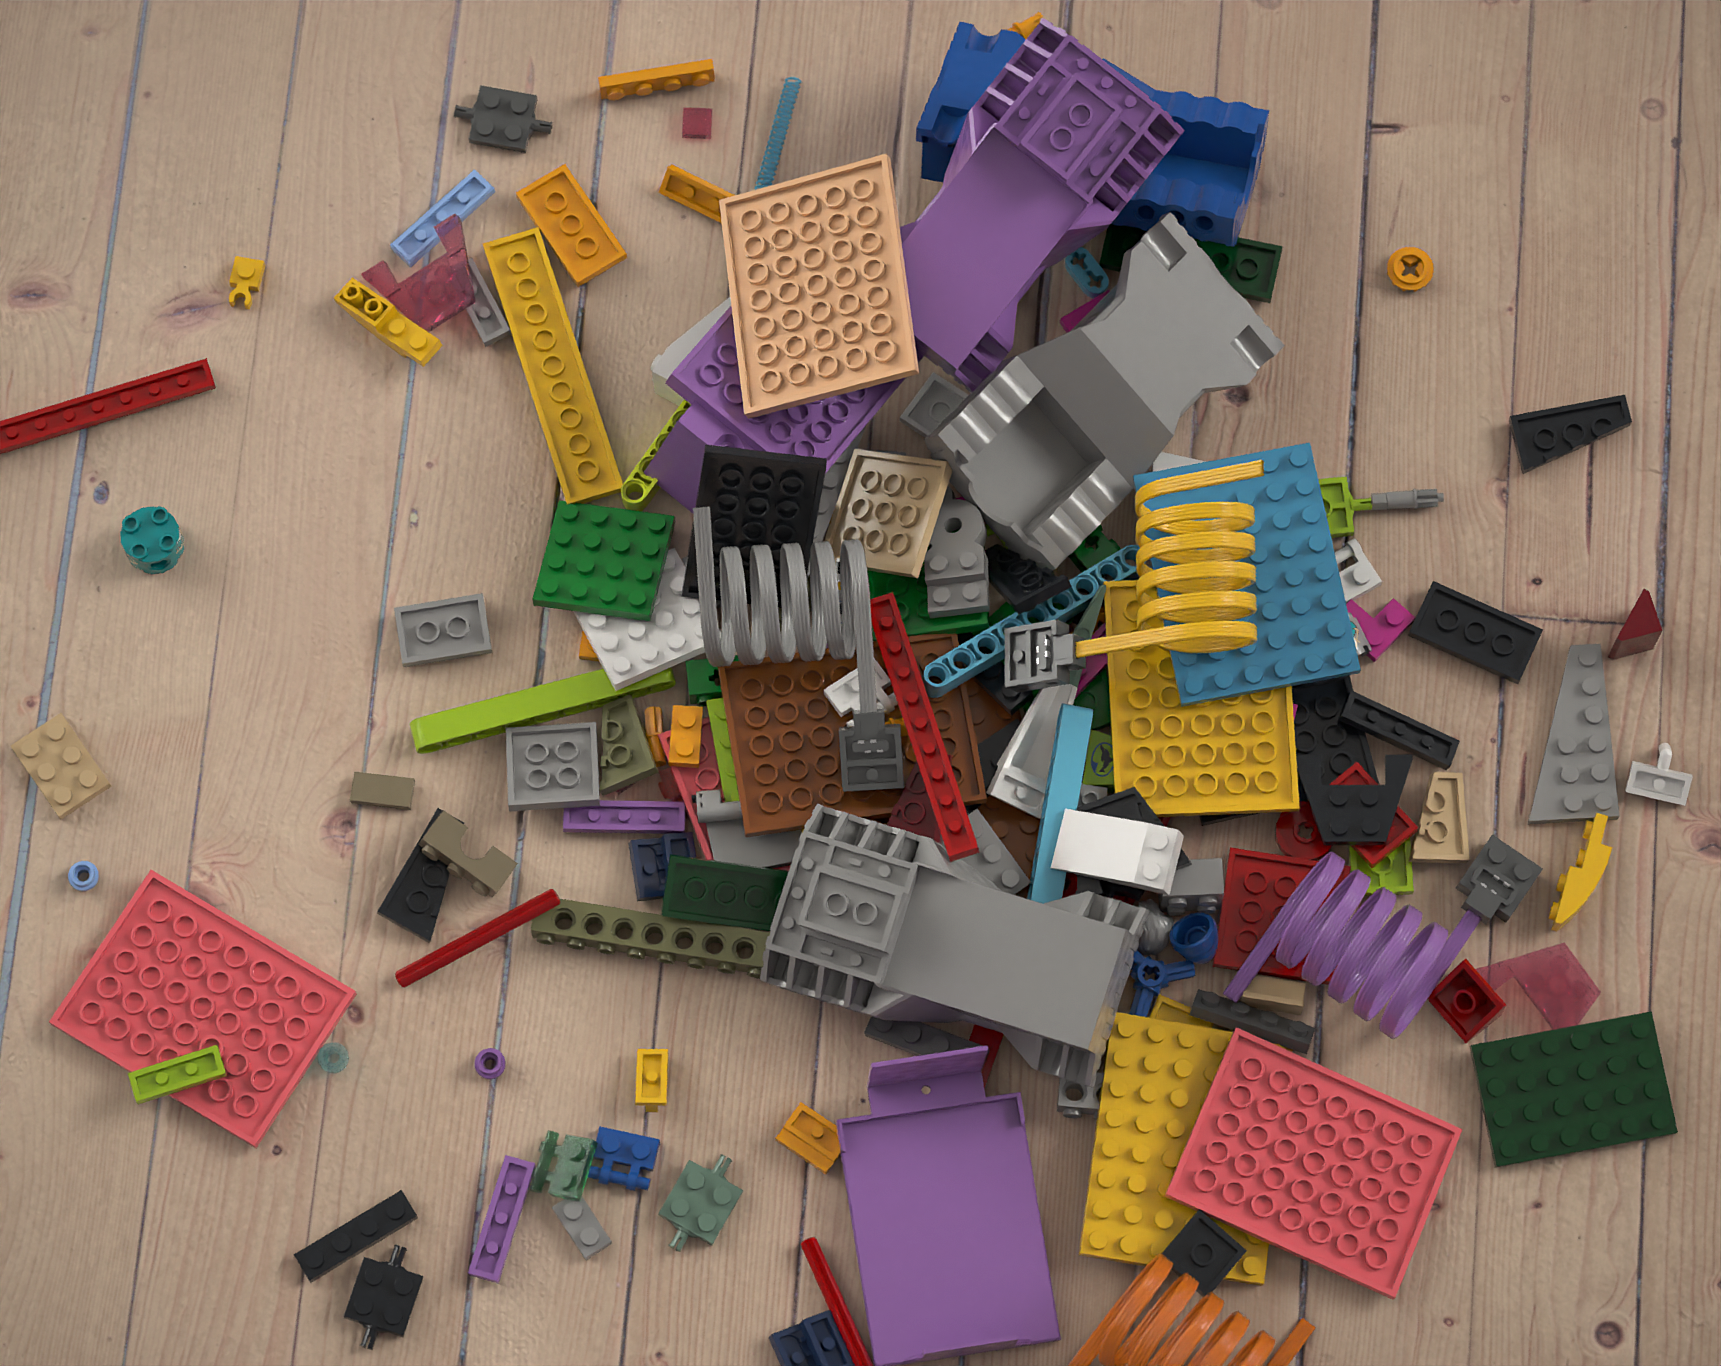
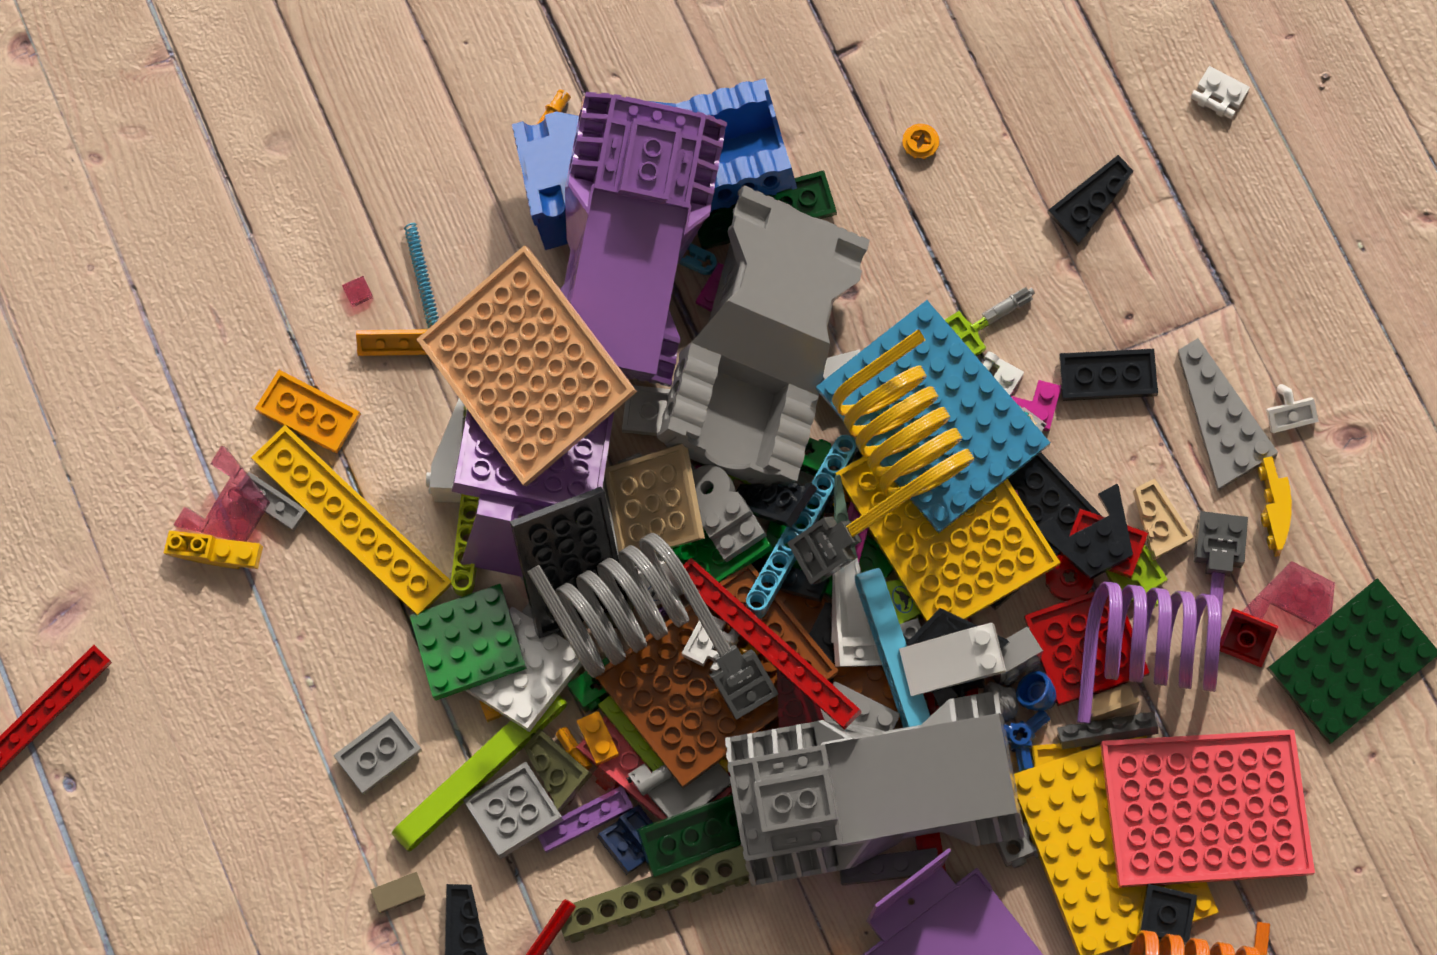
camera: 25 degrees left, 0 degrees up
(152, 539) = (127, 798): teal brick -> none
(245, 277) = (89, 569): yellow plate -> none
(444, 843) = (466, 907): dark tan arch -> none
(460, 200) = (215, 436): light blue tile -> none
(503, 119) = (214, 359): dark grey plate -> none
(654, 79) = (307, 277): light orange plate -> none
(1398, 730) = (1095, 471): black plate -> none
(1639, 631) = (1220, 313): dark red slope -> none

